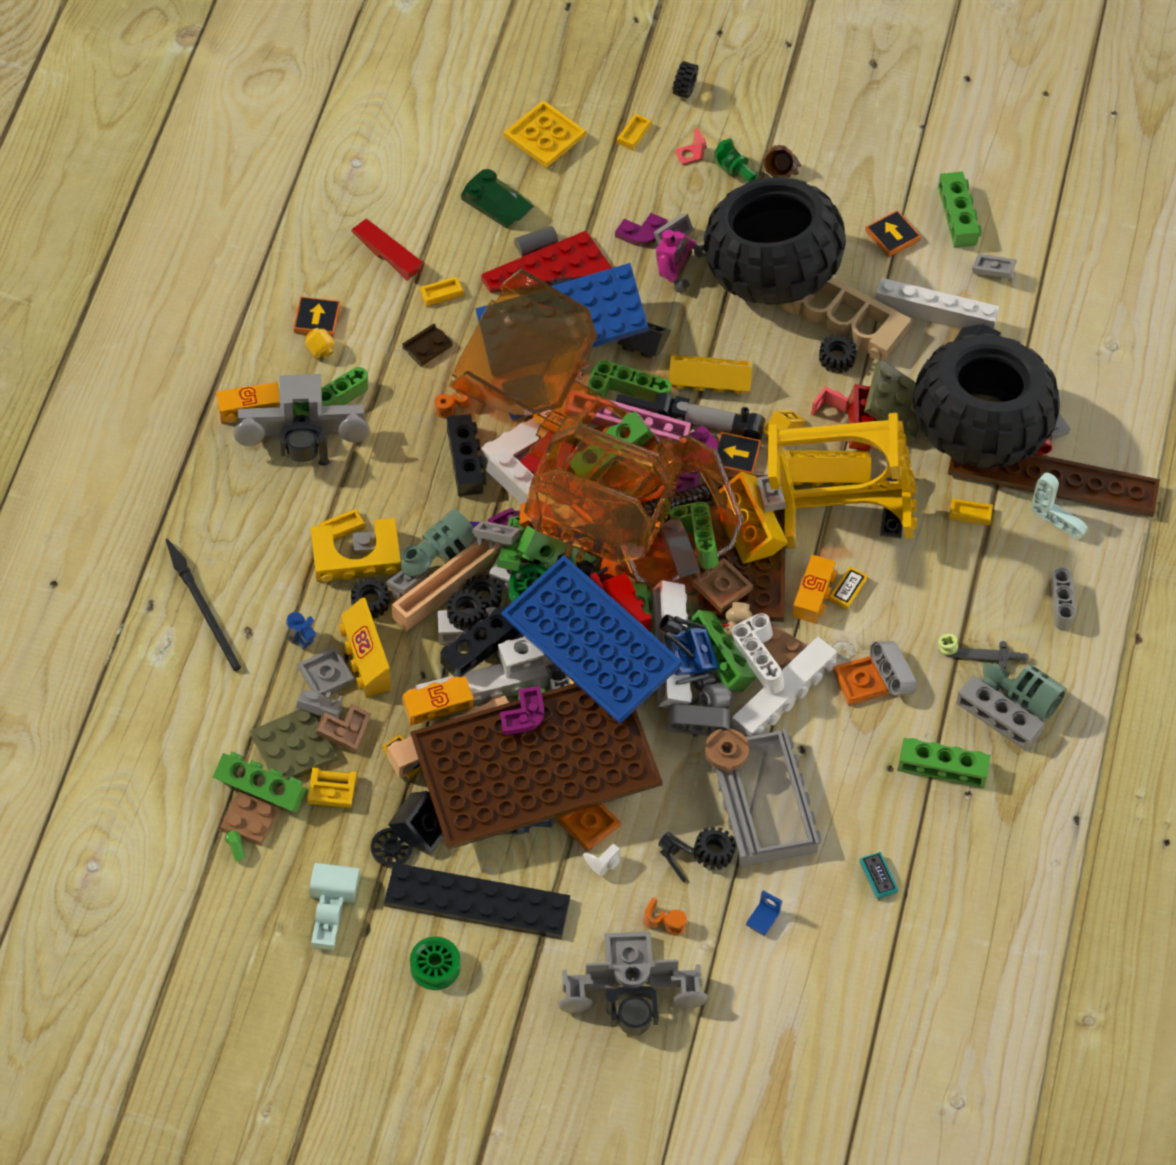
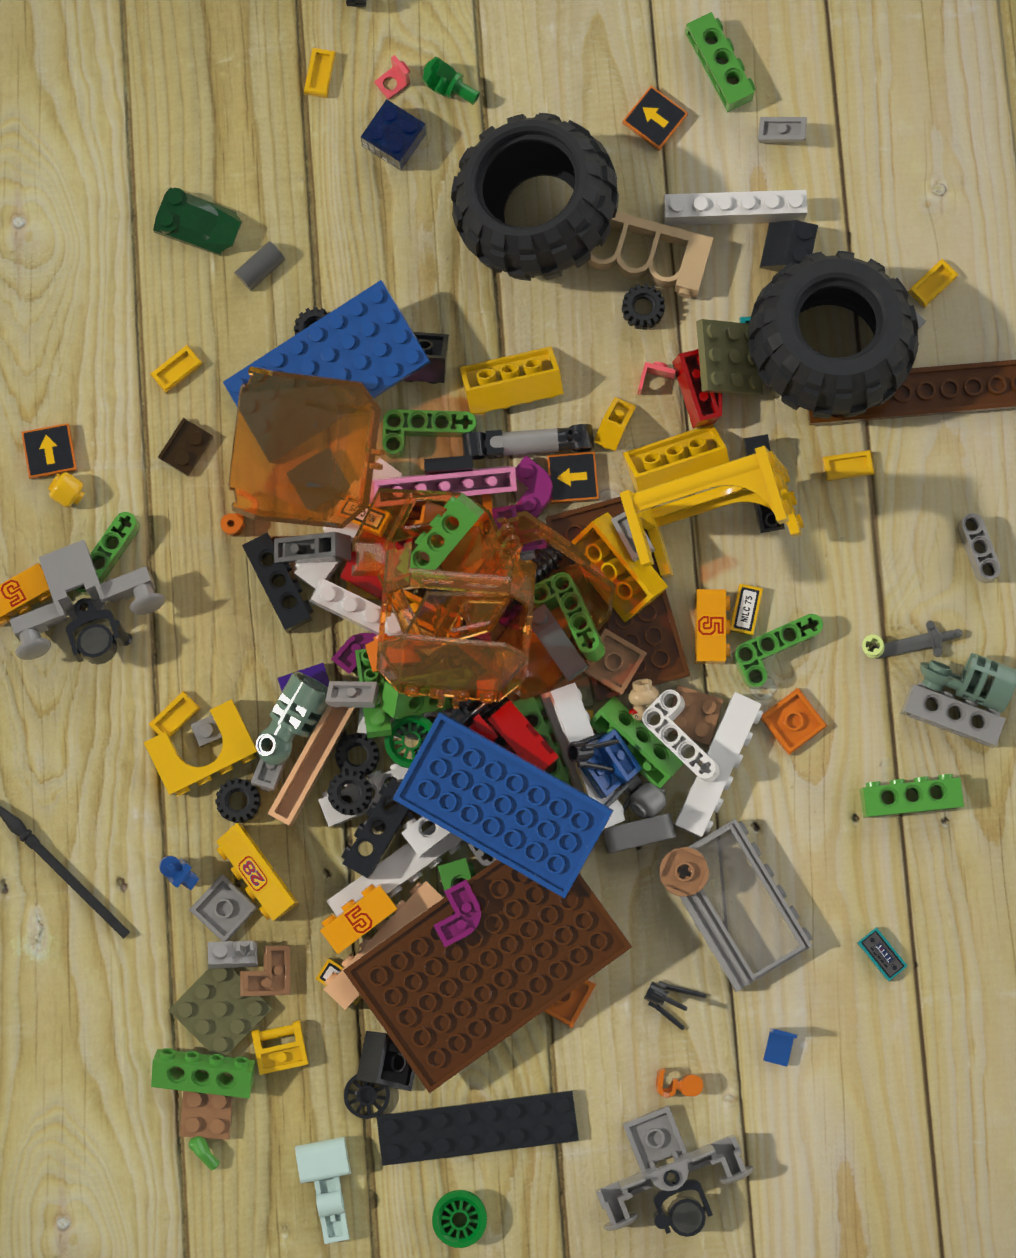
camera: 15 degrees left, 25 degrees up
(383, 245) = (95, 333): red slope -> none
(505, 430) = (313, 548): none -> dark grey slope
(544, 134) = (219, 112): yellow plate -> none
(568, 258) = (297, 283): red wing -> none
(606, 861) = (599, 1037): white plate -> none
(637, 234) = (374, 215): magenta plate -> none
(673, 256) = (421, 239): dark pink torso -> none
(677, 184) = (393, 134): none -> clear blue brick
(681, 223) = (410, 201): light grey plate -> none
(712, 858) = (714, 974): black tyre -> none
(780, 161) = (500, 65): reddish brown hair -> none
(892, 614) = (779, 645): none -> bright green beam
(893, 668) = (824, 699): light grey beam -> none
(1044, 507) = (929, 434): light aqua beam -> none
(1085, 406) = (933, 283): none -> yellow tile

